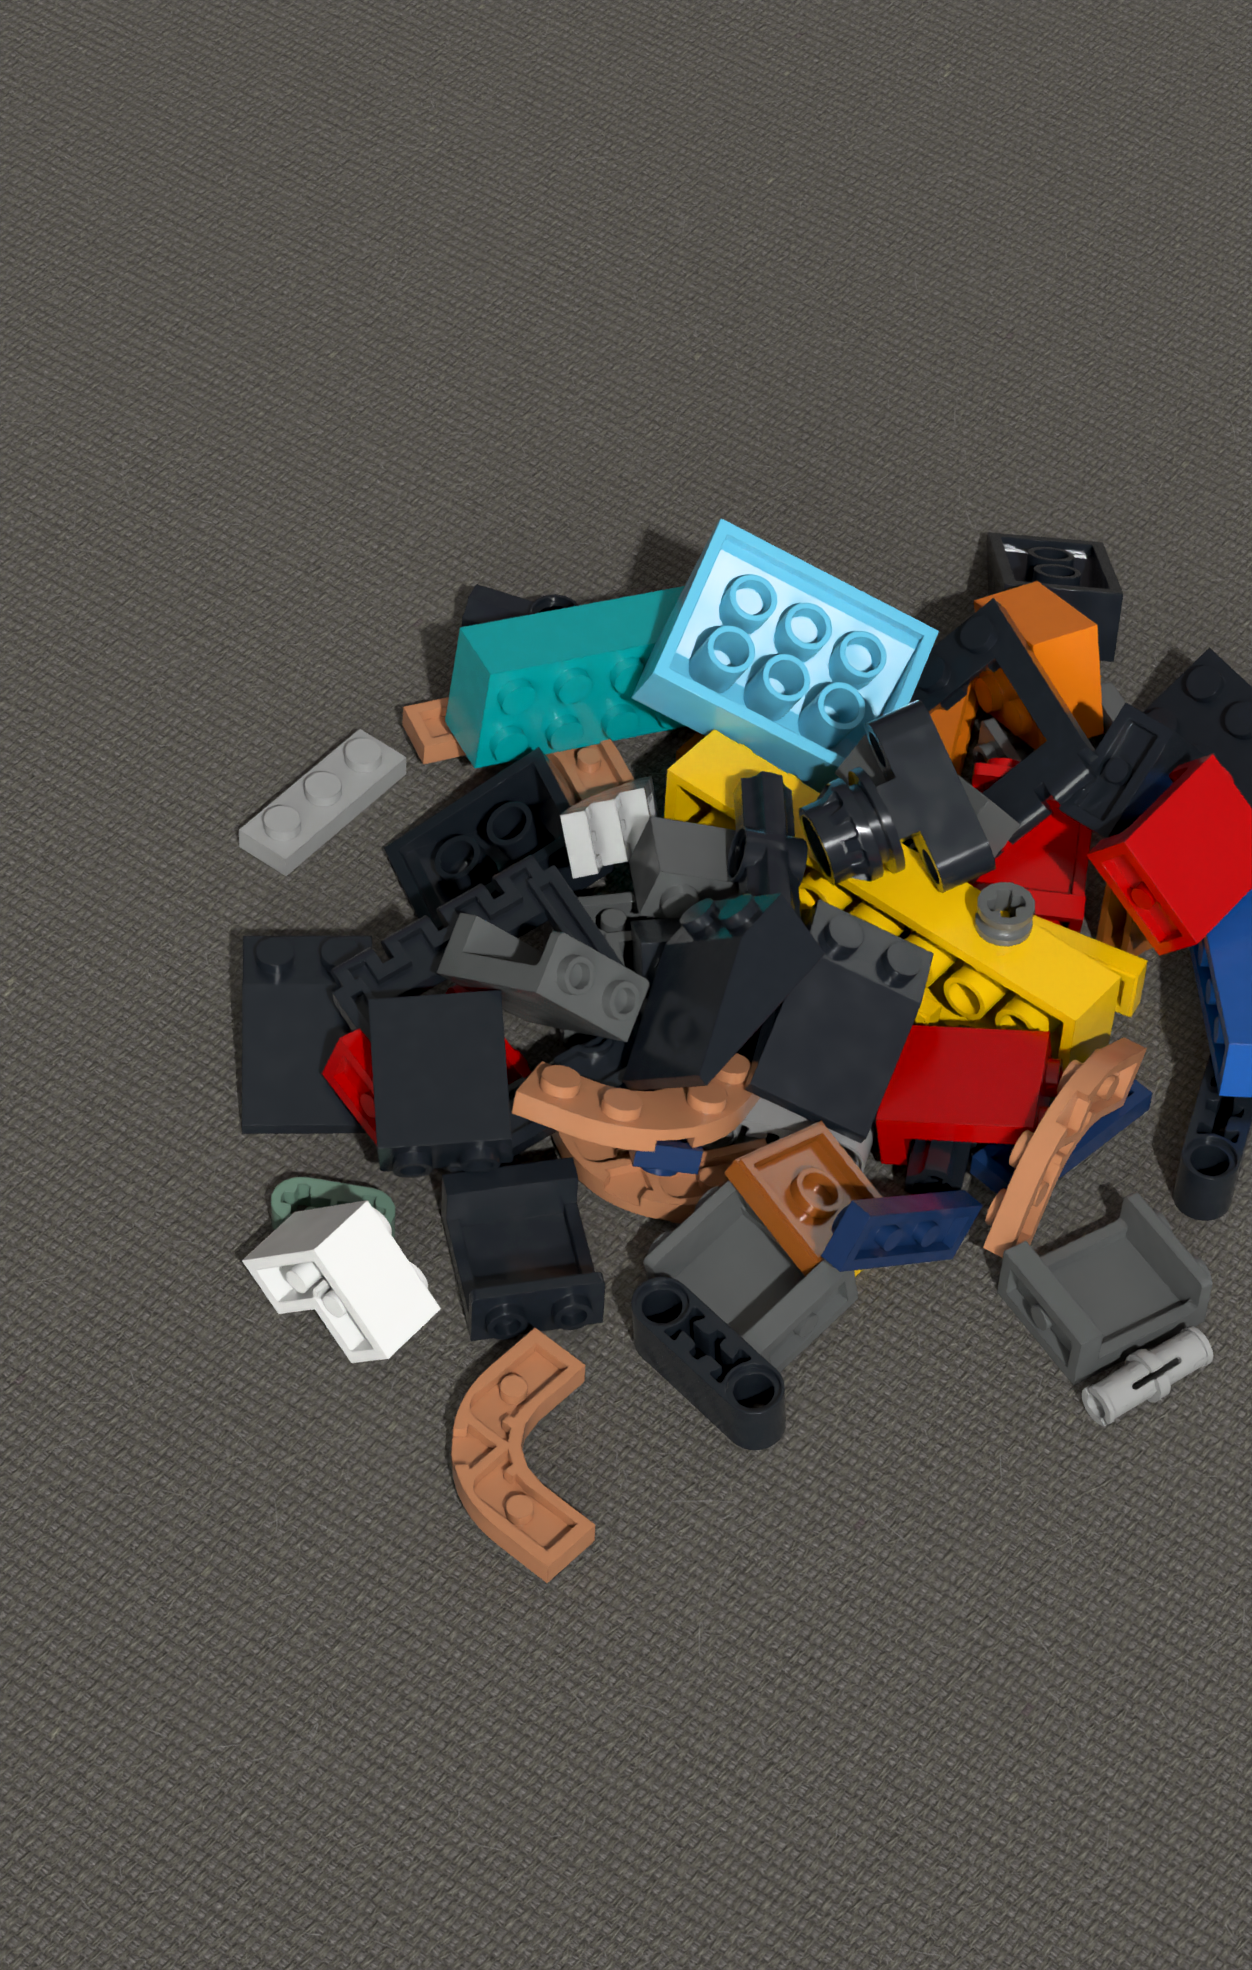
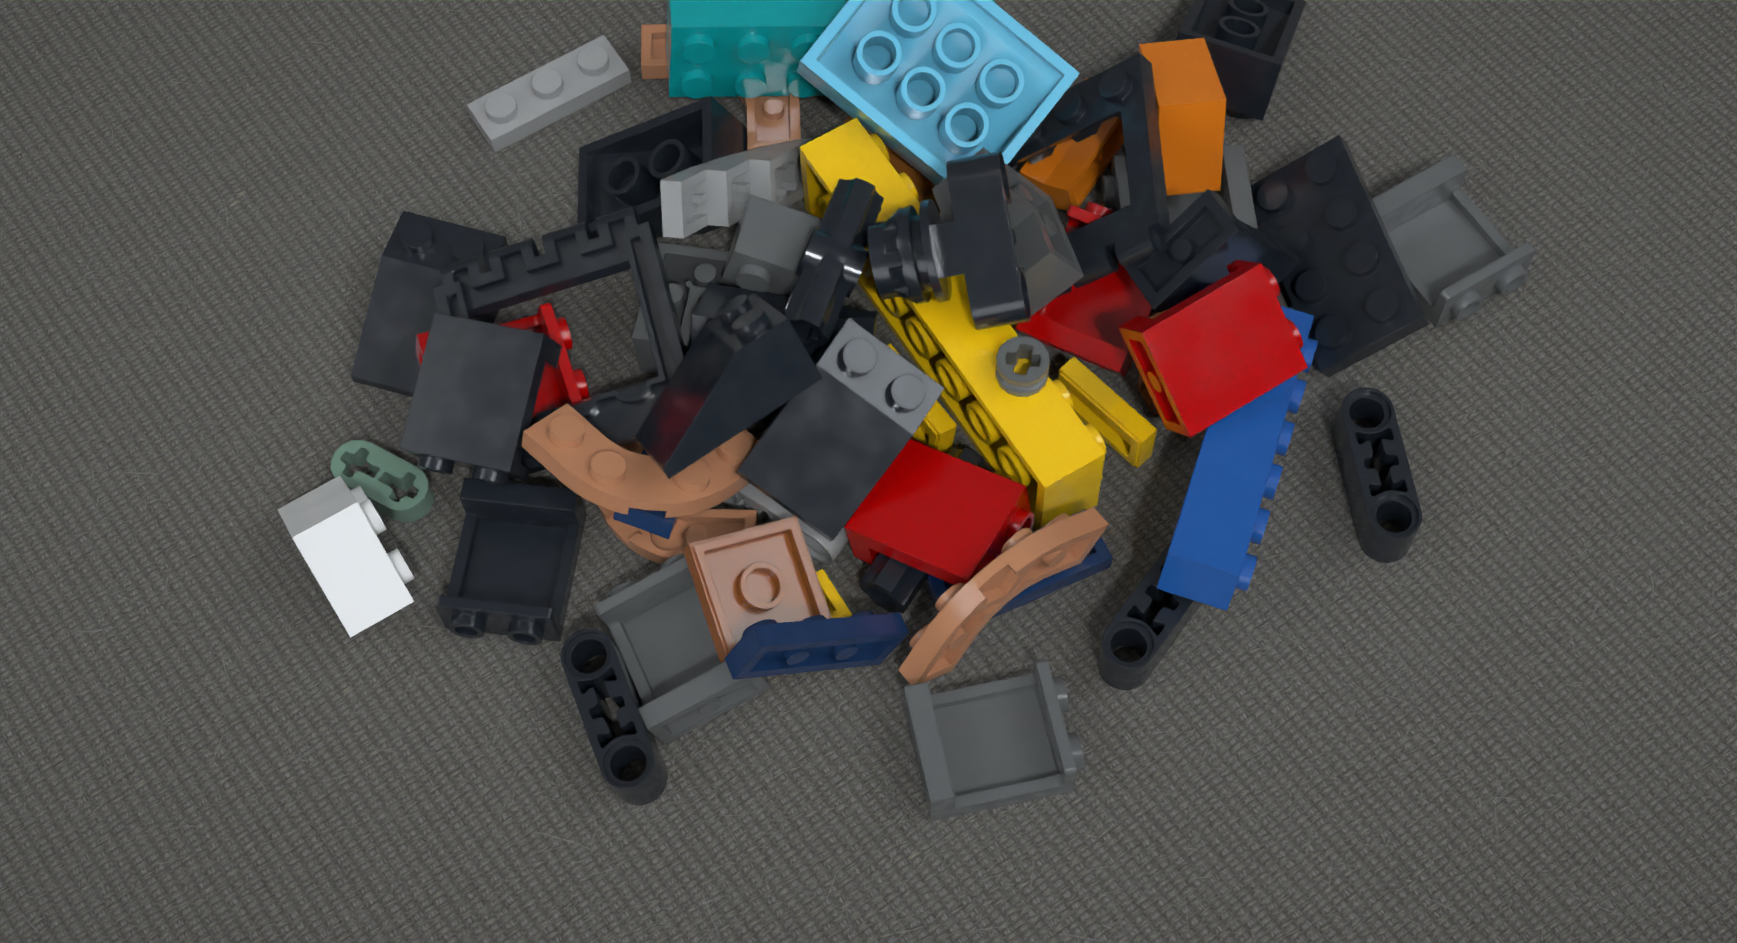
camera: 25 degrees right, 15 degrees up
(490, 1459) = (398, 752): nougat plate -> none
(556, 988) = (591, 327): dark grey panel -> none
(1176, 1359) = (992, 837): light grey pin -> none

